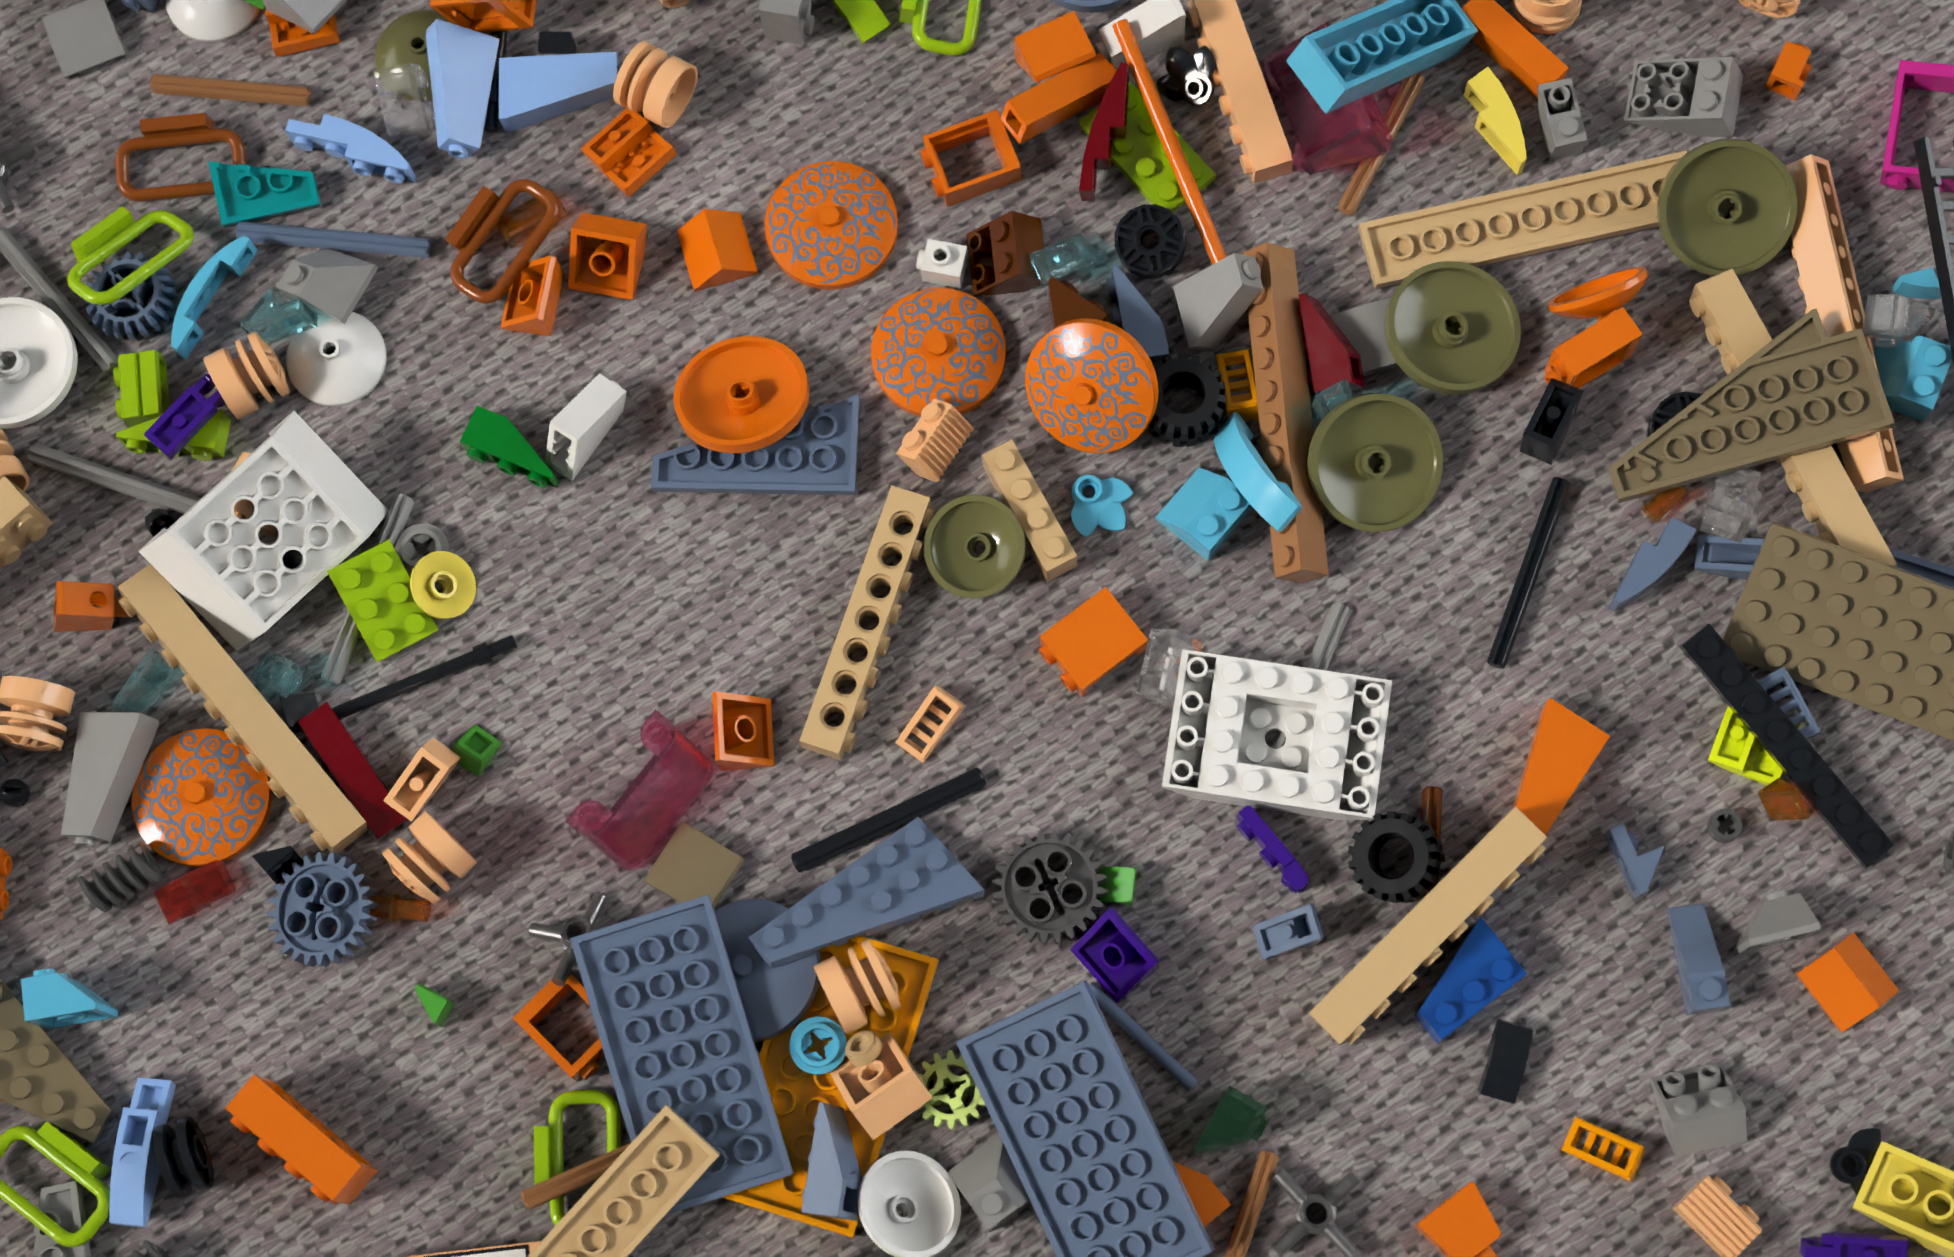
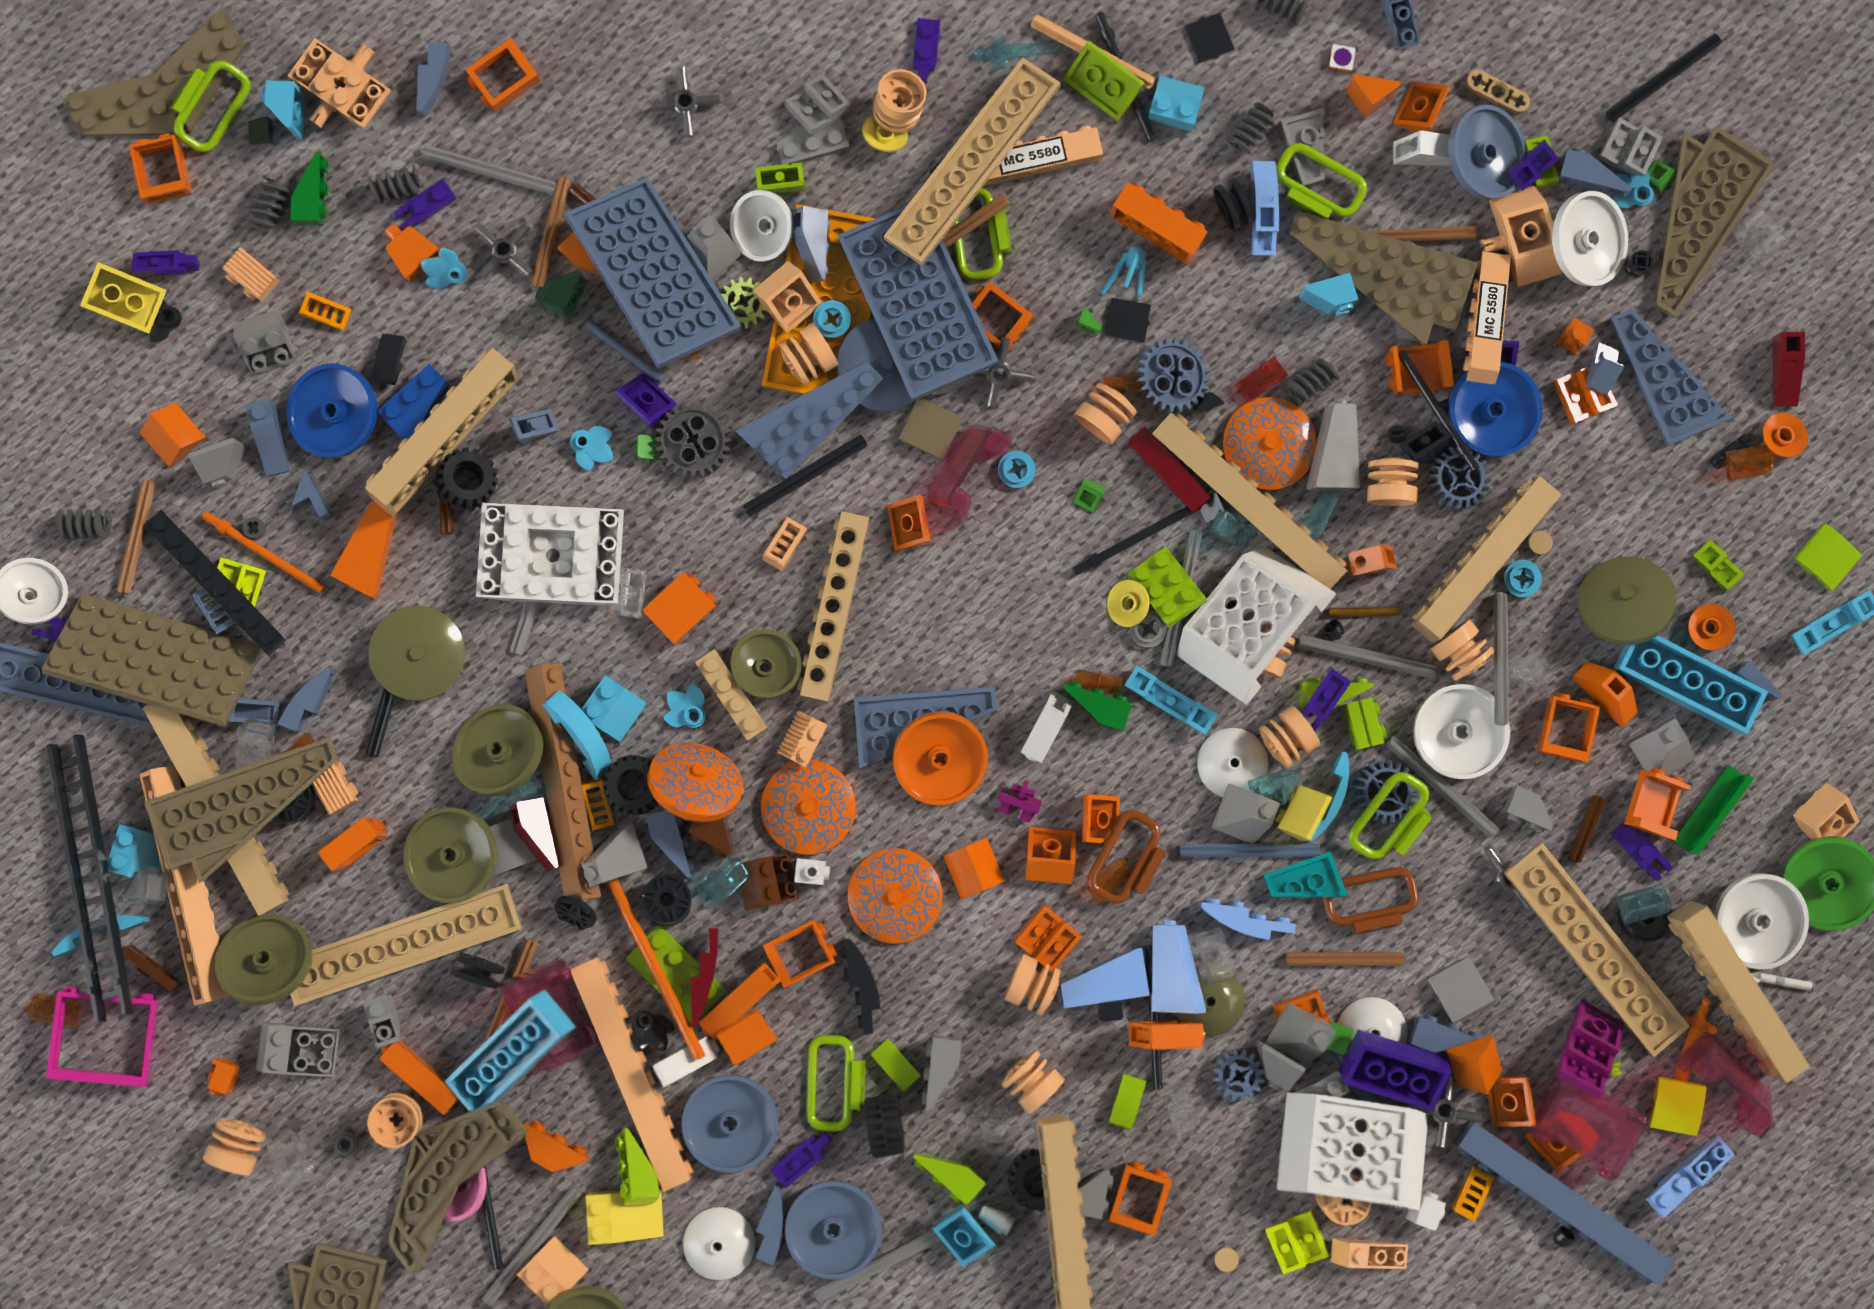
camera: 165 degrees right, 10 degrees up
(102, 544) = (1364, 611): none -> pearl gold bar
(241, 264) = (1302, 813): none -> light yellow slope
(348, 1092) = (1134, 260): none -> medium azure plant
(377, 1005) = (1127, 320): none -> black piece
(404, 445) = (1170, 700): none -> medium azure slope
(422, 778) = (1119, 468): light nougat slope -> none
(502, 484) = (1098, 680): none -> clear orange axle
(562, 788) = (1021, 459): none -> medium azure gear
(638, 332) = (1020, 797): none -> magenta hips
(863, 1048) = (801, 318): tan tile -> none
(888, 111) = (860, 975): none -> black slope
(1199, 893) = (595, 448): none -> medium azure plate
(1273, 851) = (548, 479): dark purple hinge -> none
(1278, 235) = (575, 912): none -> black wheel
(1411, 1190) = (440, 269): none -> medium azure plate
(1423, 168) = (477, 970): none -> black wheel
(1486, 615) = (416, 653): none -> olive dish
(1497, 118) = (427, 1018): light yellow slope -> none
(1551, 421) = (379, 793): black slope -> none
(1597, 986) = (332, 410): none -> blue dish
(1599, 296) = (350, 887): orange dish -> none
(1613, 431) = (335, 790): none -> light nougat brick
(1769, 830) = (225, 528): none -> orange bar
(1783, 801) = (215, 546): clear orange slope -> none
(1890, 219) = (149, 967): none -> reddish brown plate
(1906, 832) = (135, 537): none -> medium nougat axle

